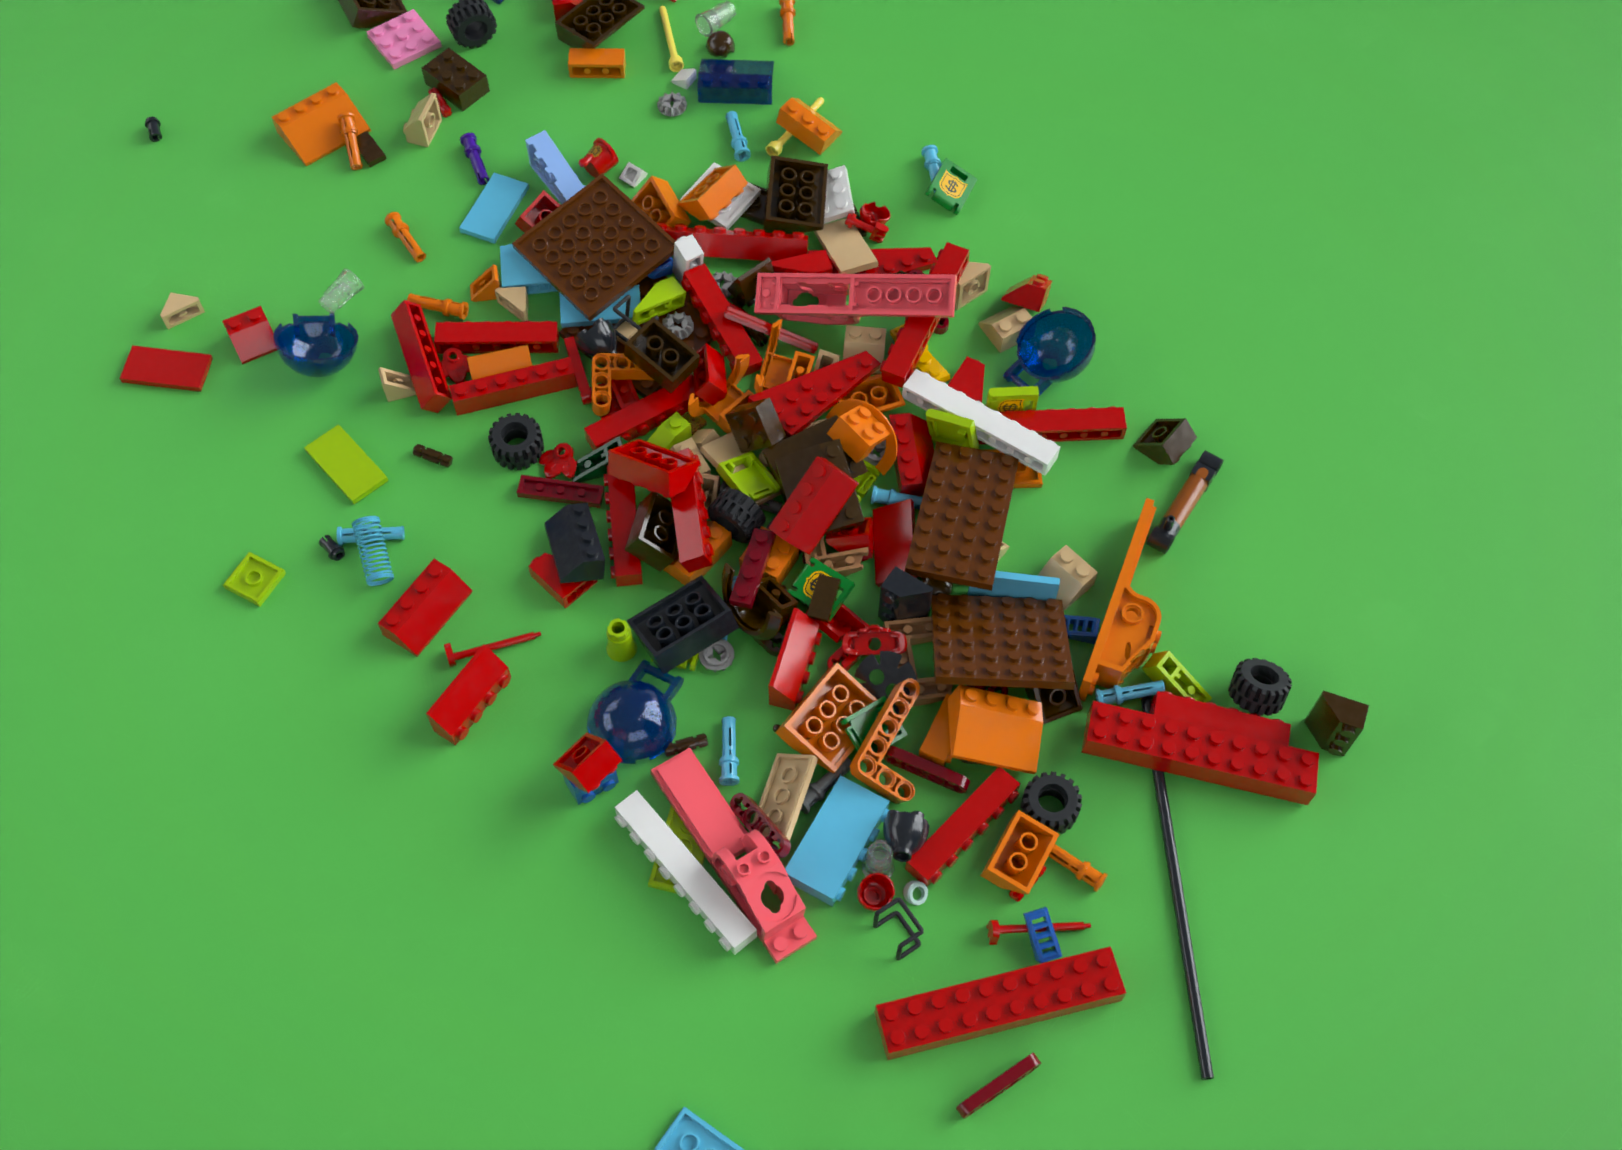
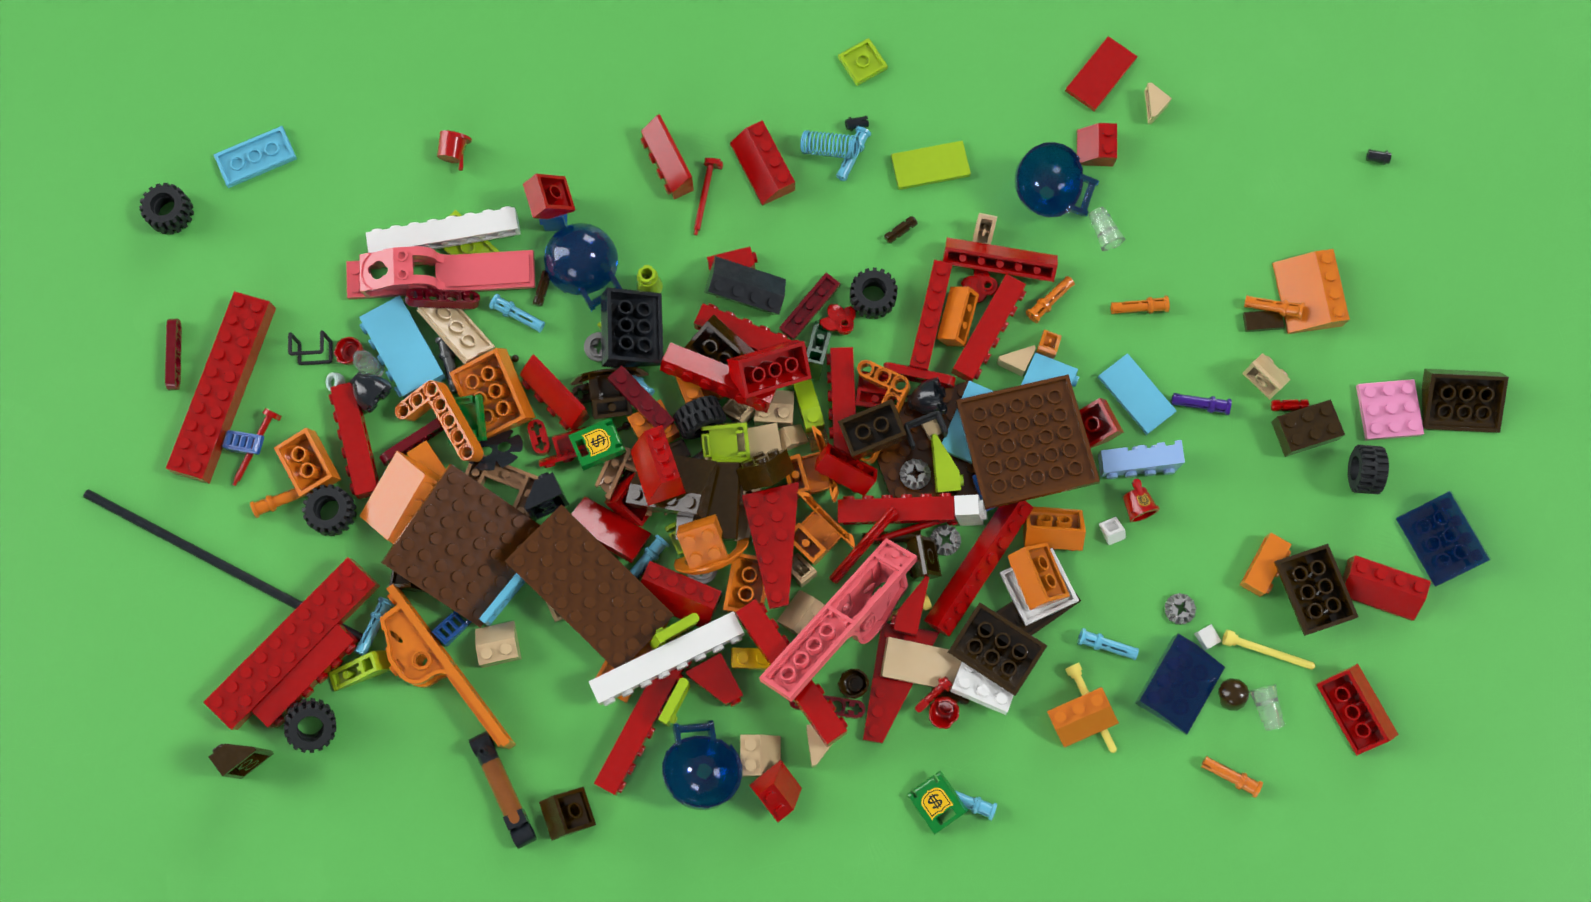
camera: 120 degrees right, 15 degrees up
(577, 926) = (452, 147): none -> red hat
(823, 598) = (583, 437): dark brown tile -> none
(857, 642) = (538, 448): red piece -> none

